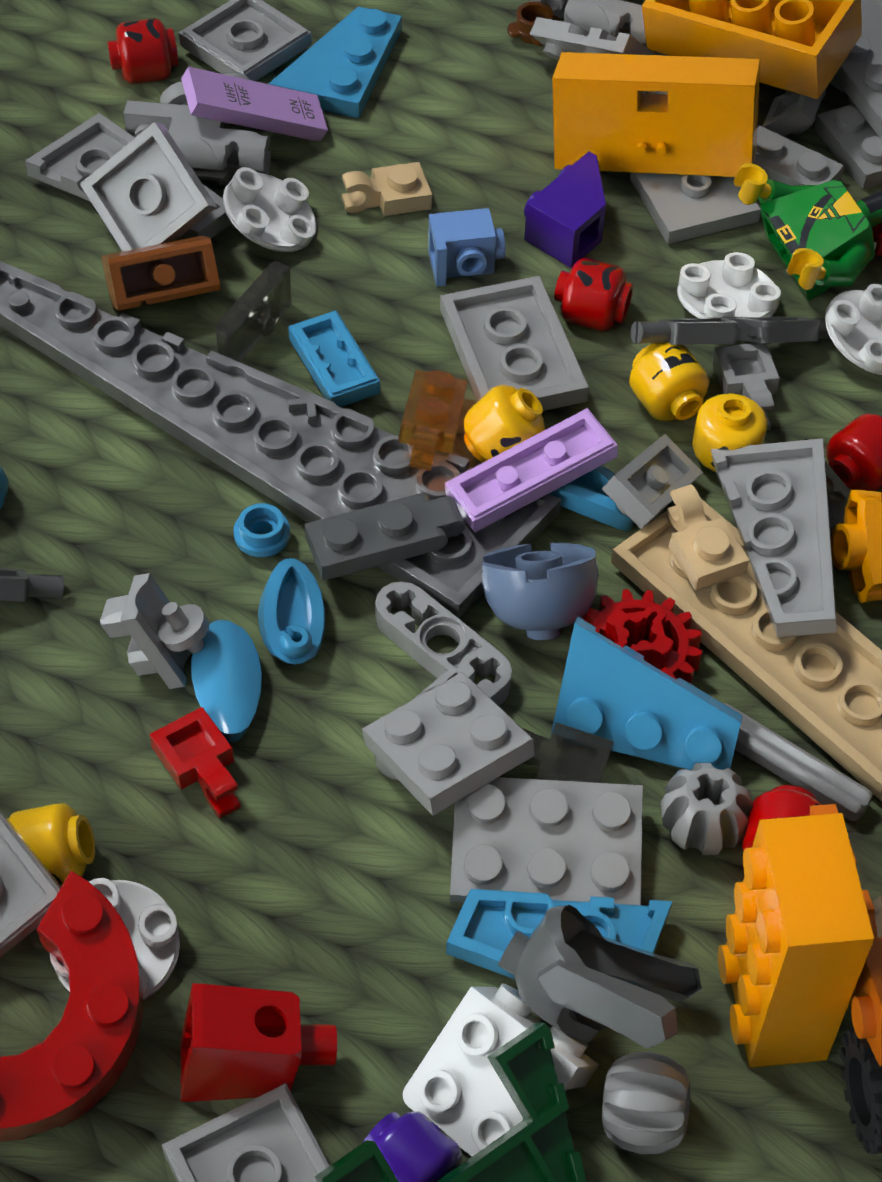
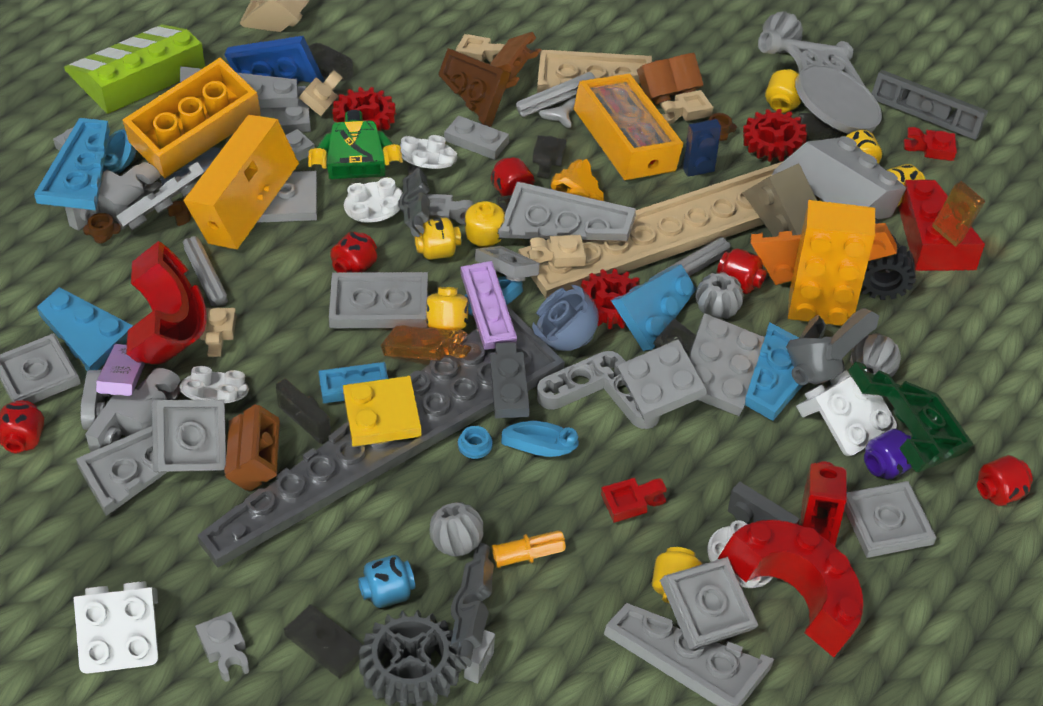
camera: 75 degrees left, 5 degrees down
(64, 637) = (528, 548): none -> light orange axle
(68, 534) = (456, 529): none -> light grey piece
(159, 630) = (551, 491): light grey hips -> none
(213, 942) = (752, 507): none -> dark grey plate
(227, 678) = (577, 476): dark azure arm -> none
(269, 394) = (381, 411): none -> yellow plate
(393, 128) = (176, 306): none -> red brick
(463, 244) = (288, 302): medium blue brick -> none
(495, 148) = (205, 271): none -> light grey axle
(568, 213) = (283, 246): dark purple slope -> none

